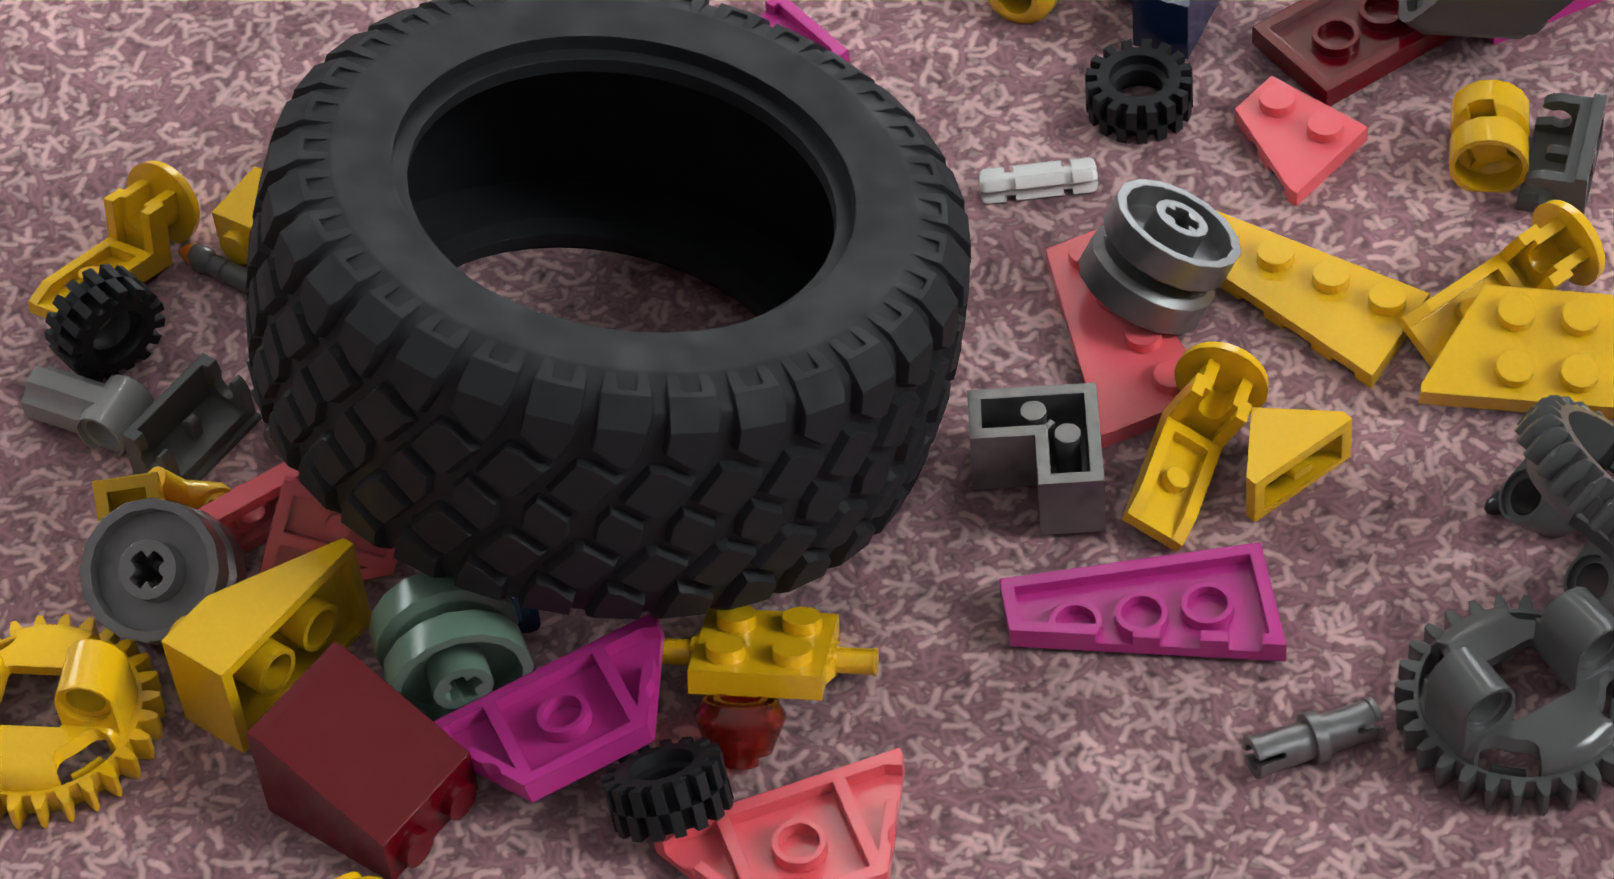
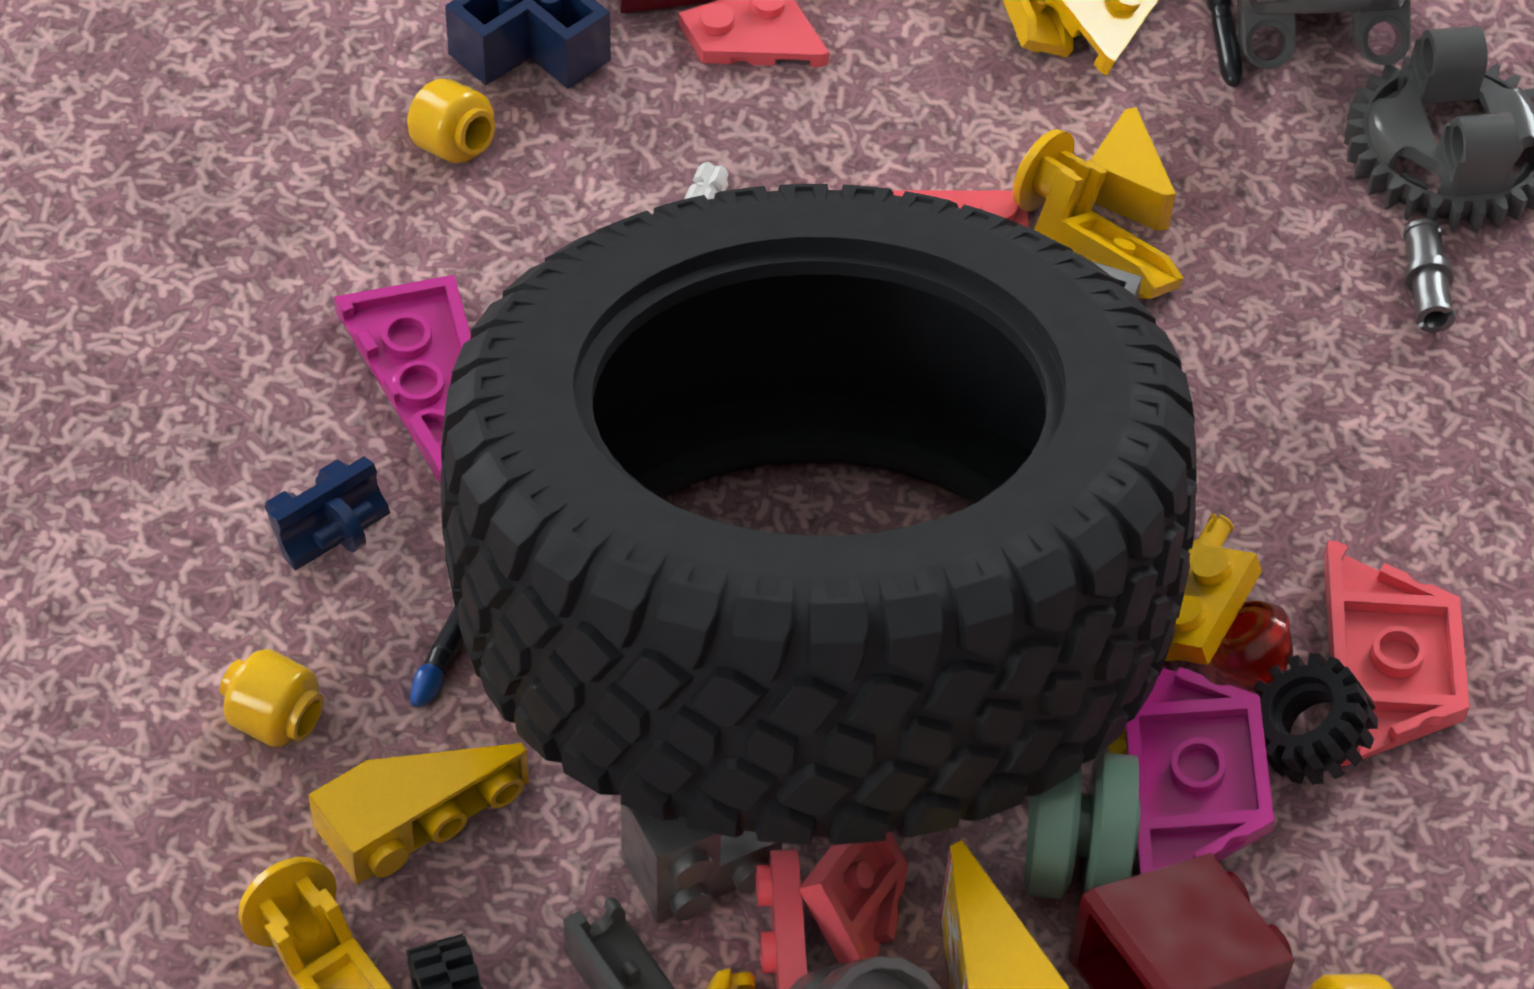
camera: 75 degrees left, 5 degrees up
(205, 261) = (374, 900): dark grey piece -> none
(1139, 68) = (642, 77): black tyre -> none
(1159, 256) = (890, 142): flat silver wheel -> none
(1160, 605) = (1244, 316): dark pink wing -> none
(1323, 299) = (941, 91): yellow wing -> none

